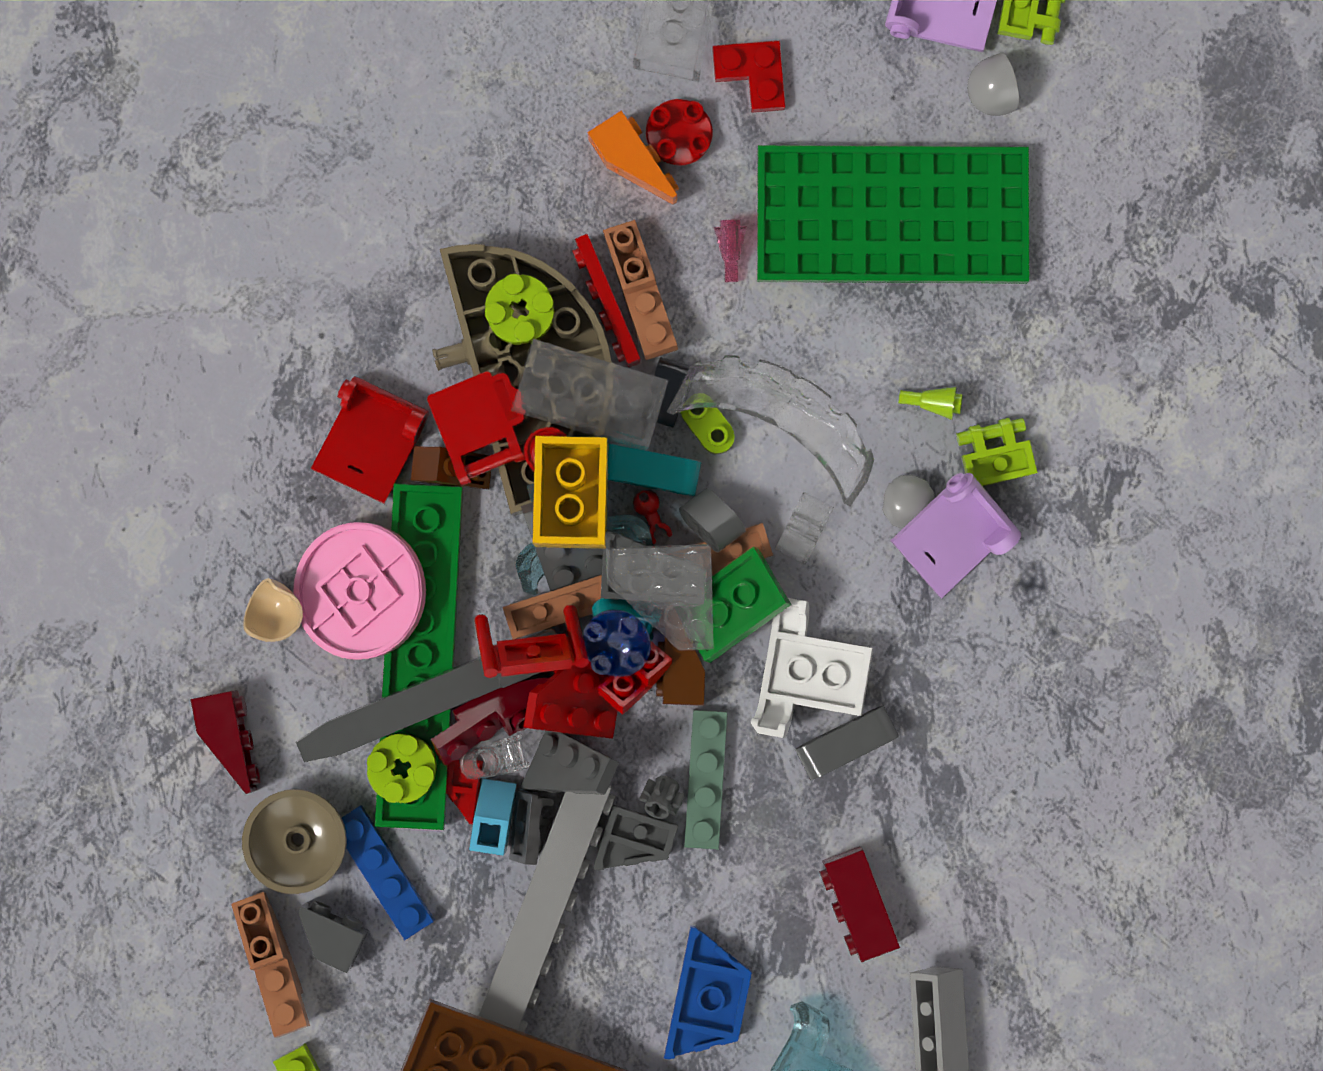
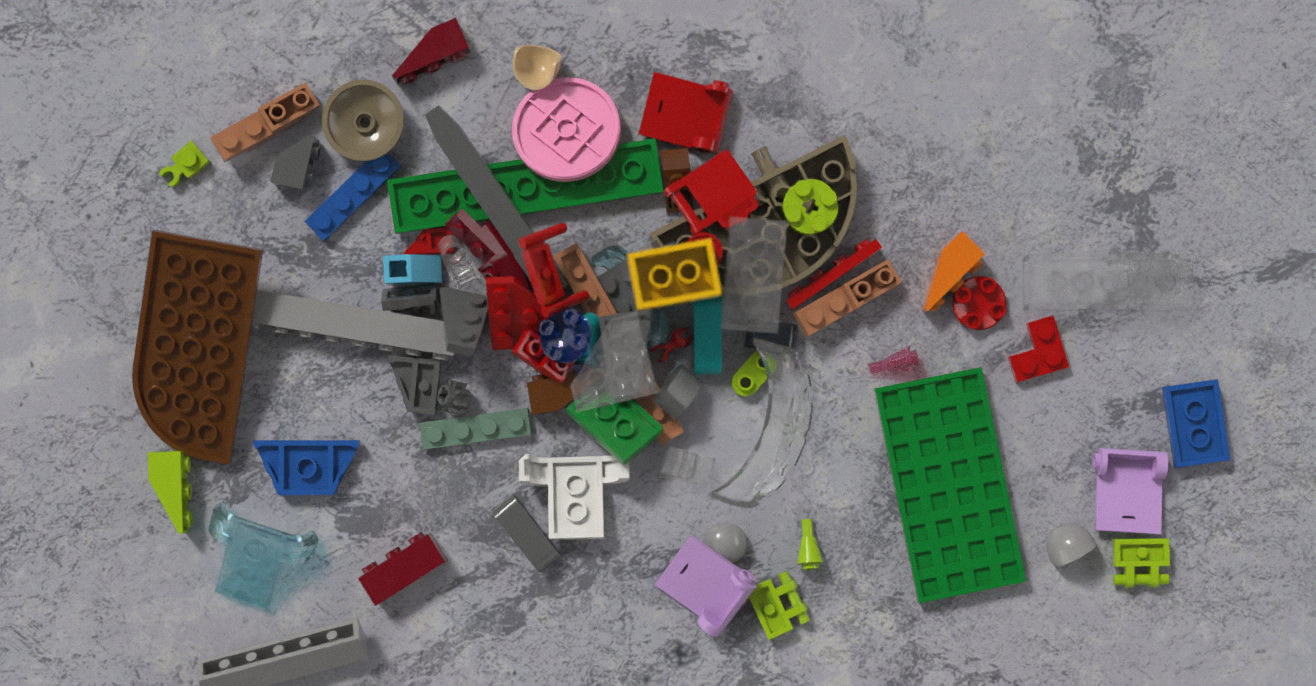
camera: 75 degrees right, 0 degrees up
(382, 762) = (420, 188): lime plate -> none

